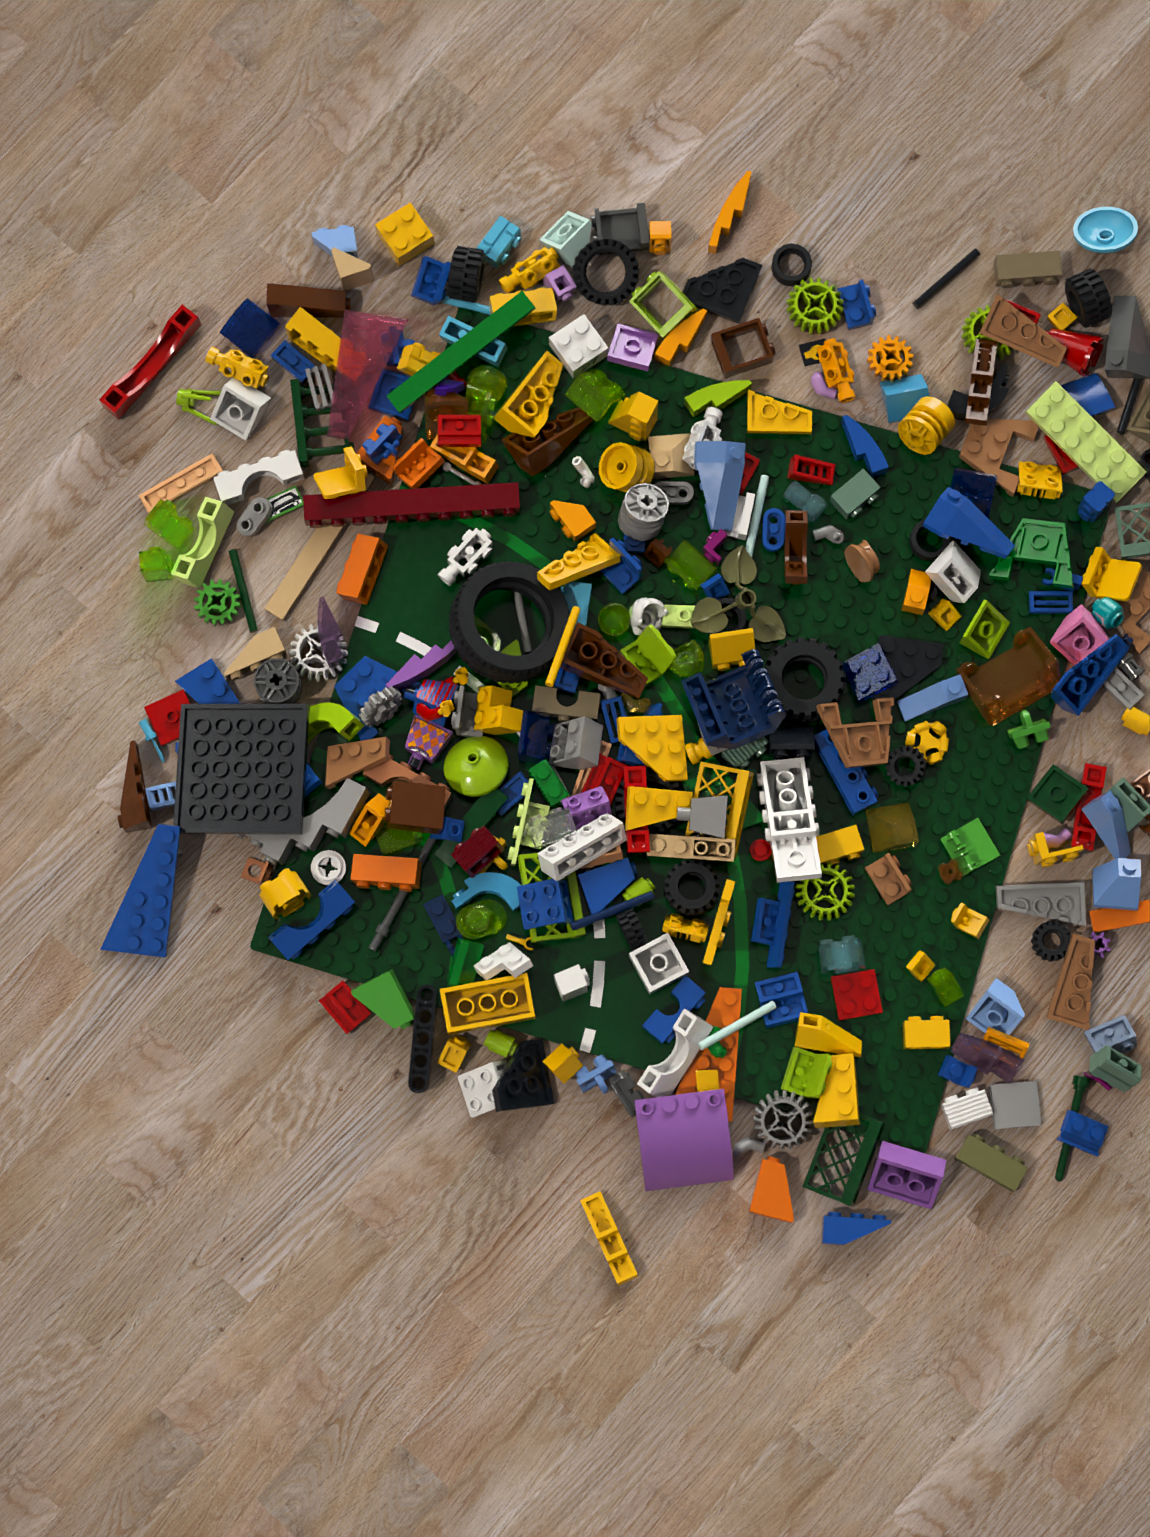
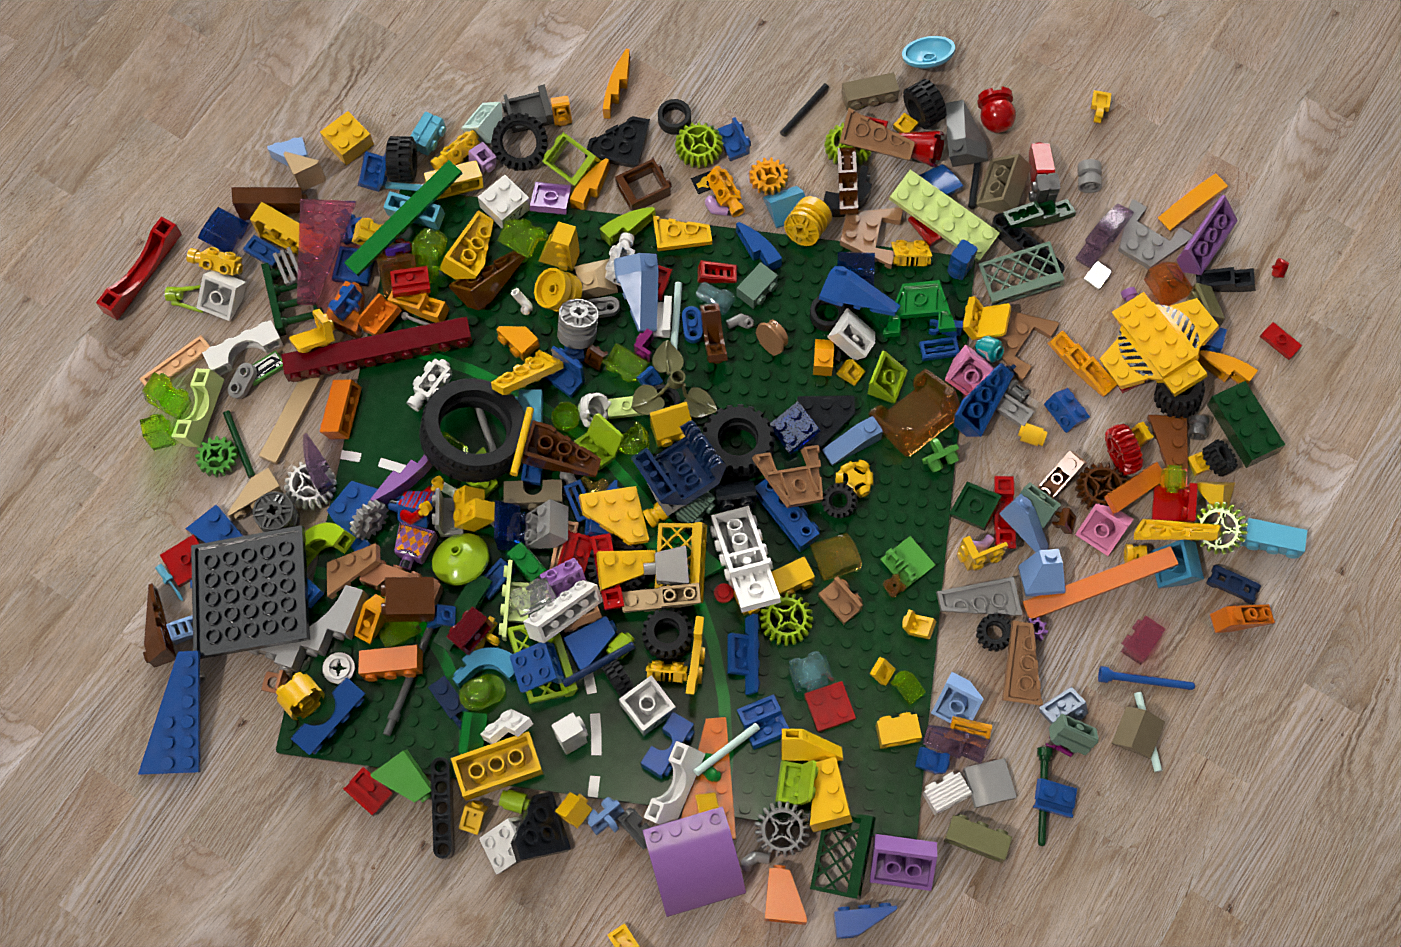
camera: 10 degrees left, 10 degrees down
(521, 941) = (521, 706): yellow hand -> none

